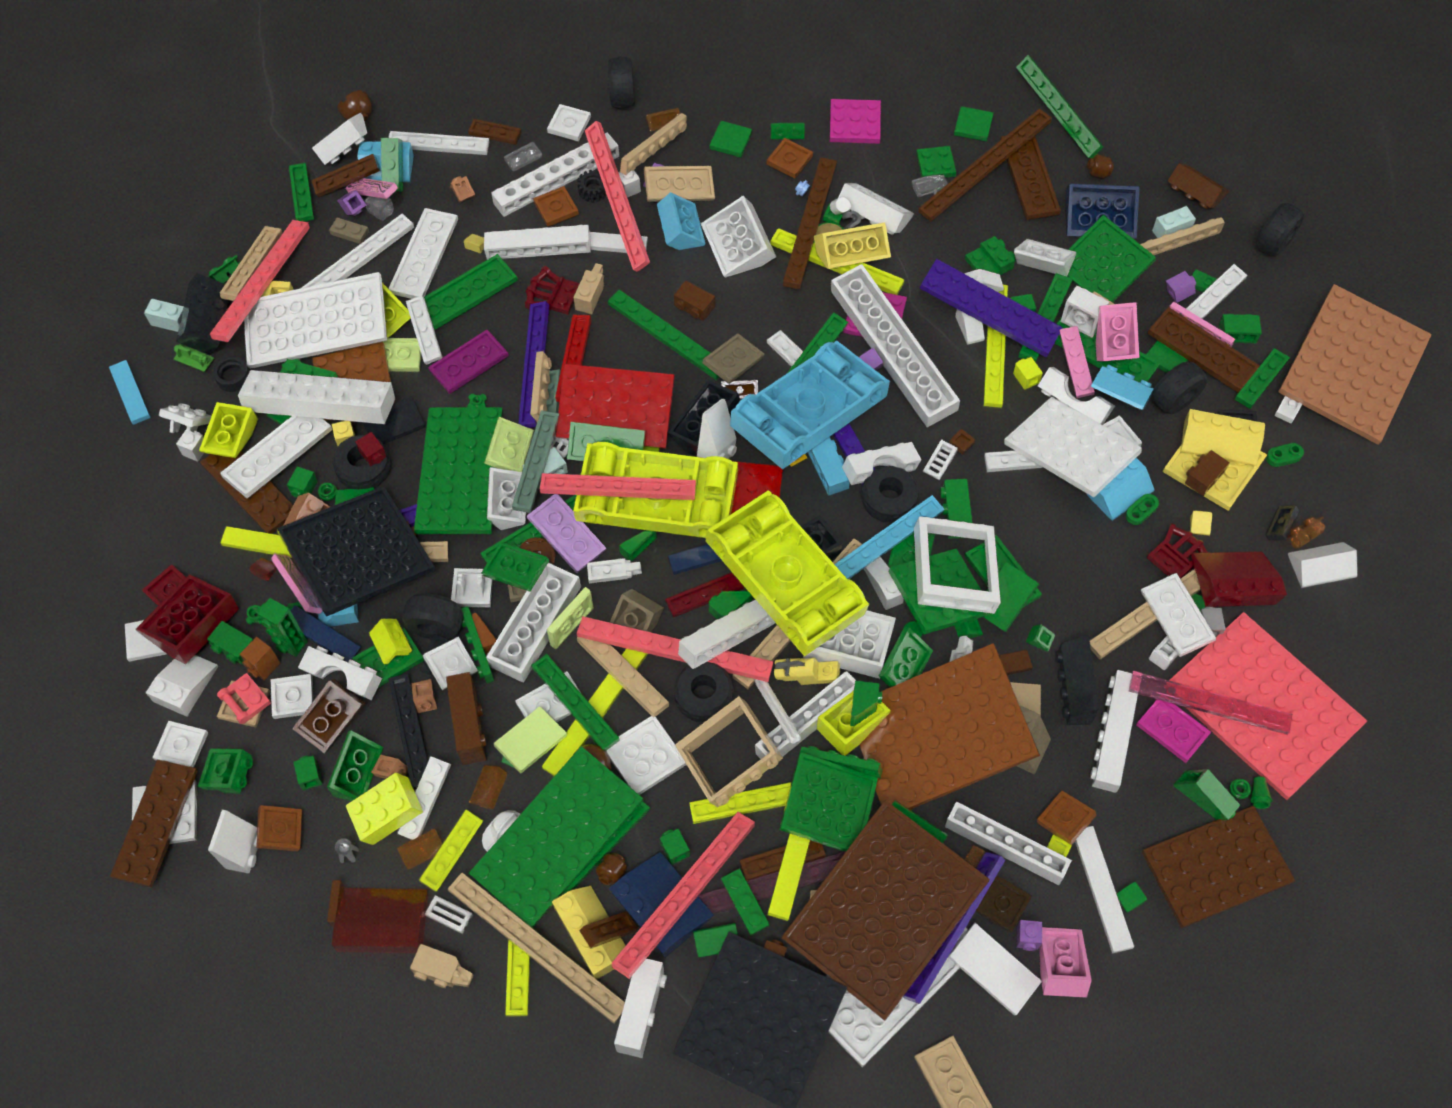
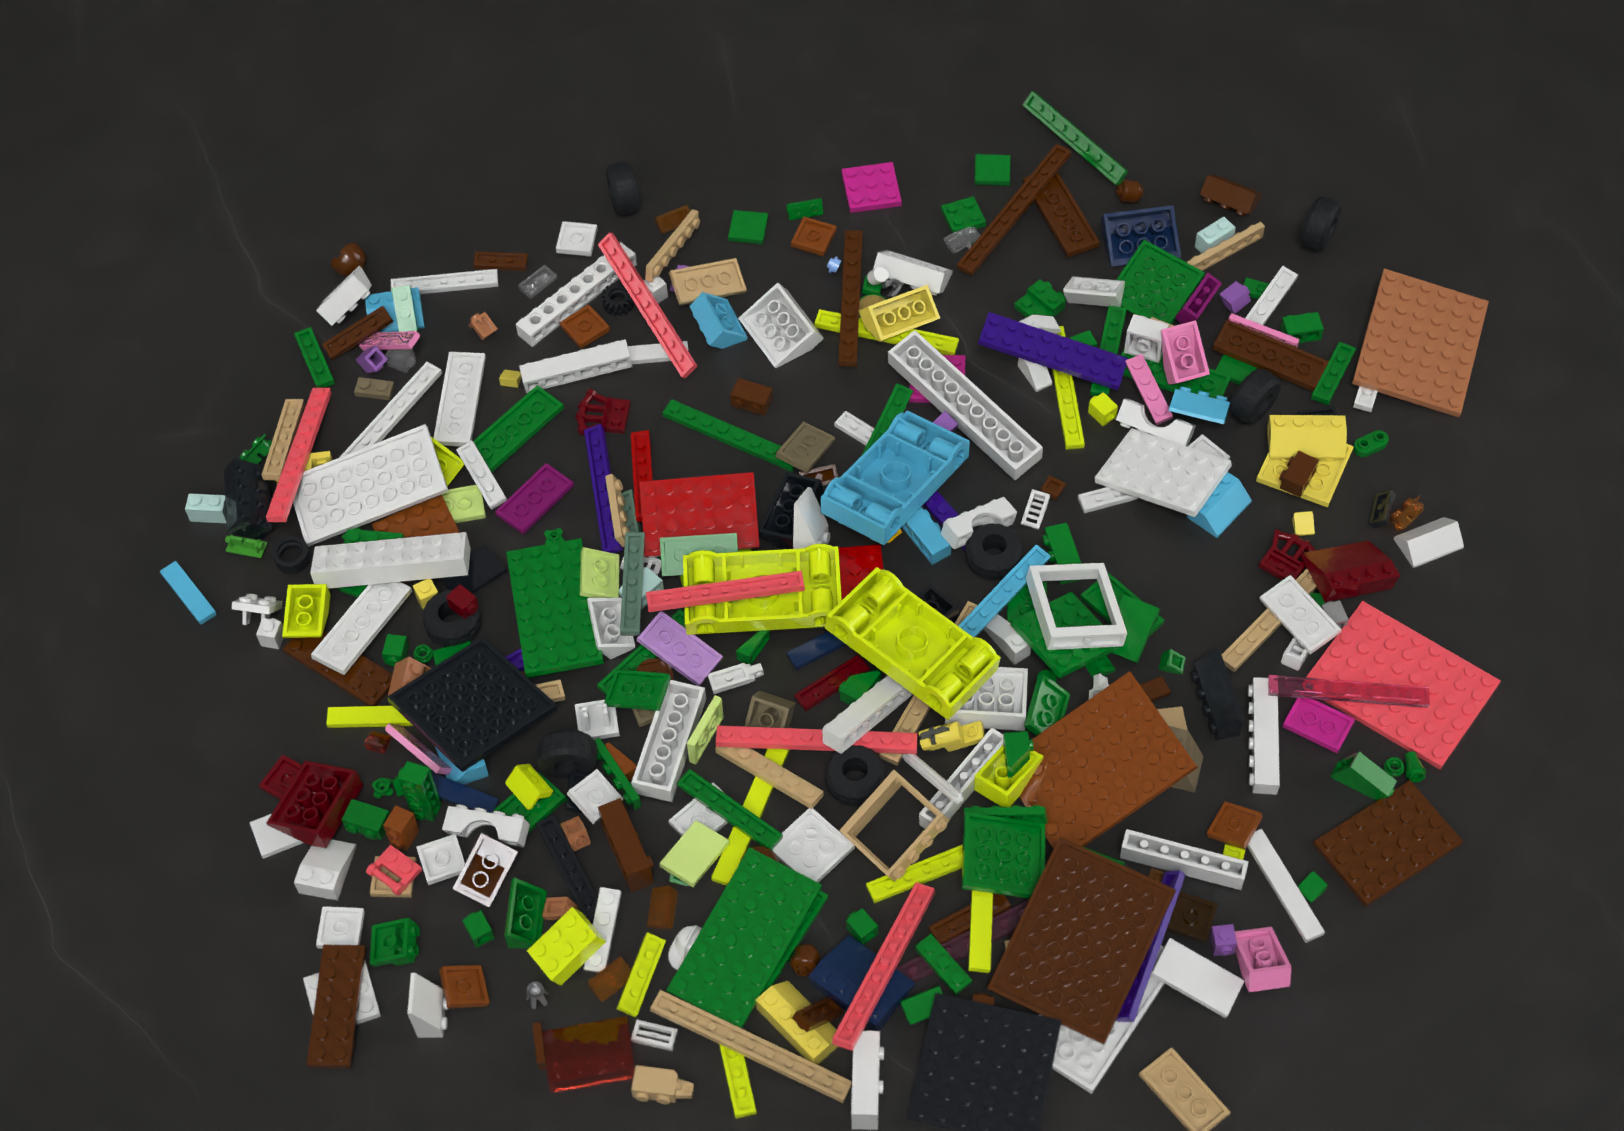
camera: 10 degrees left, 5 degrees down
(589, 290) = (641, 405): tan hinge -> none
(1141, 510) = (1242, 522): green plate -> none
(1144, 282) = (1199, 299): none -> magenta brick

